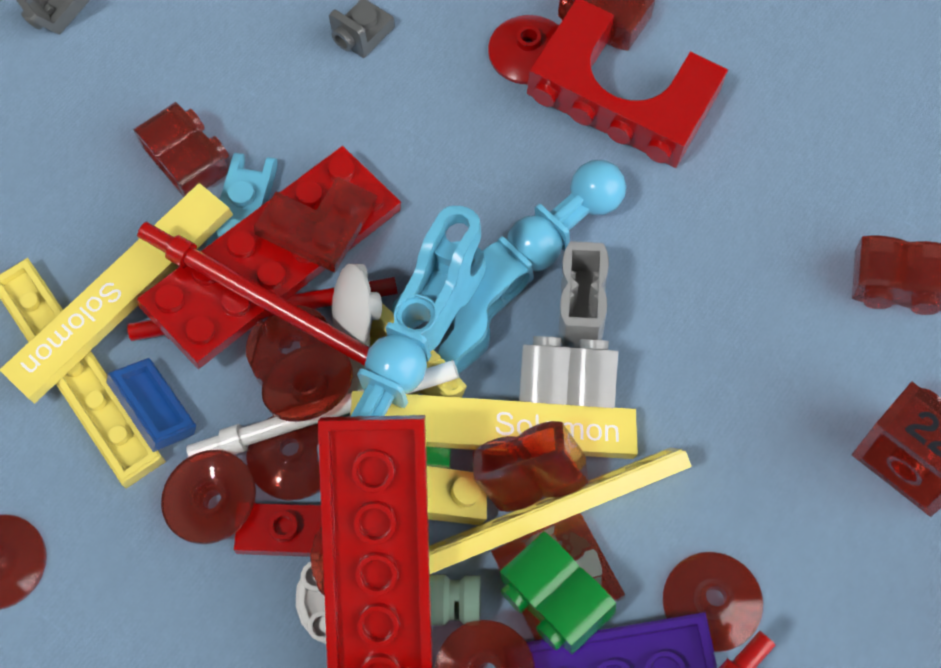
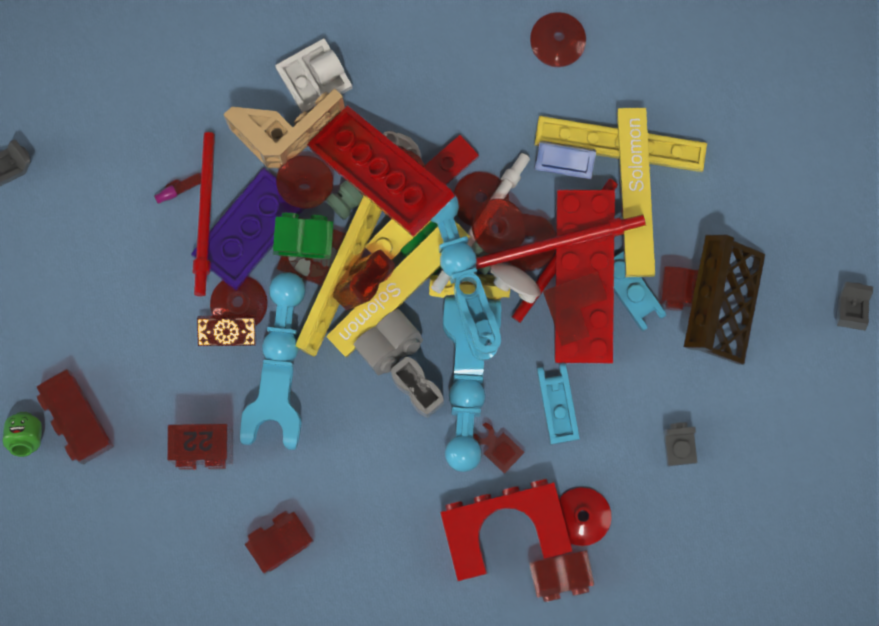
camera: 130 degrees right, 15 degrees up
(163, 105) = (710, 296): none -> dark brown fence
(195, 483) = (494, 131): clear red dish -> none
(444, 157) = (558, 406): none -> medium azure hinge
(550, 170) = (500, 450): none -> clear red plate
(714, 483) = (277, 371): none -> medium azure piece
(761, 575) = (226, 330): none -> tile

